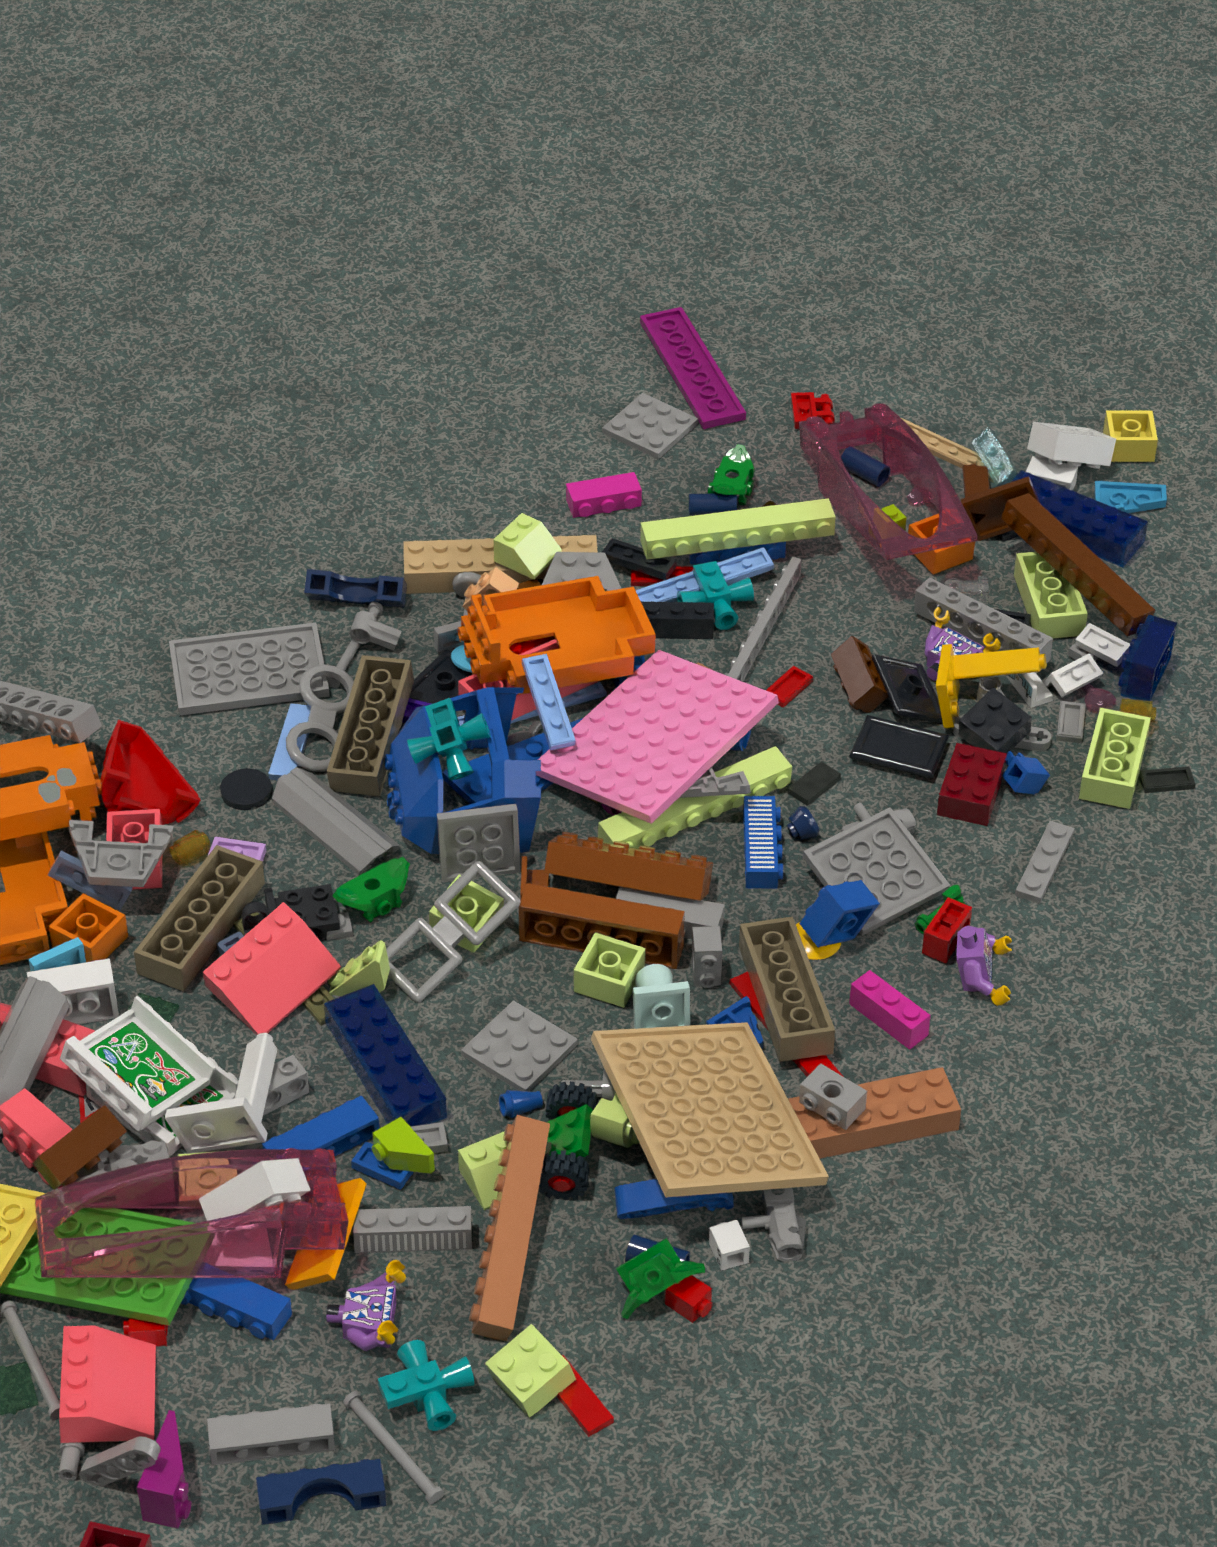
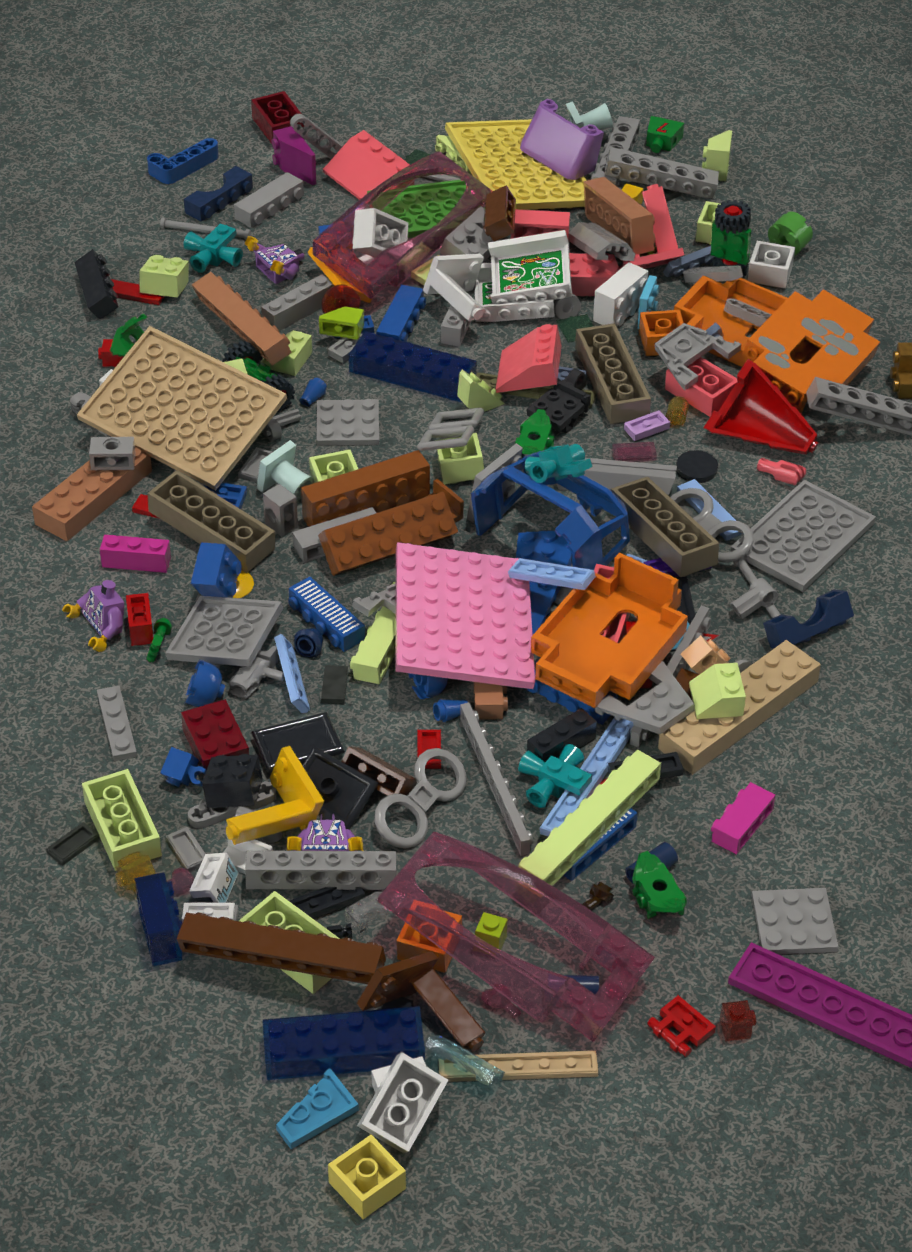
camera: 140 degrees right, 0 degrees up
(182, 732) = (782, 470): none -> coral arm
(282, 838) = (634, 451): none -> clear pink tile
(377, 1186) = (339, 297): none -> clear red plate
(620, 1417) = (96, 284): none -> black brick
(772, 387) = (737, 1020): none -> clear red brick
(833, 640) = (420, 798): none -> light grey bar
(848, 803) = (292, 674): none -> light blue tile
(943, 829) = (204, 685): none -> blue cylinder
(1003, 597) = (339, 931): none -> black piece

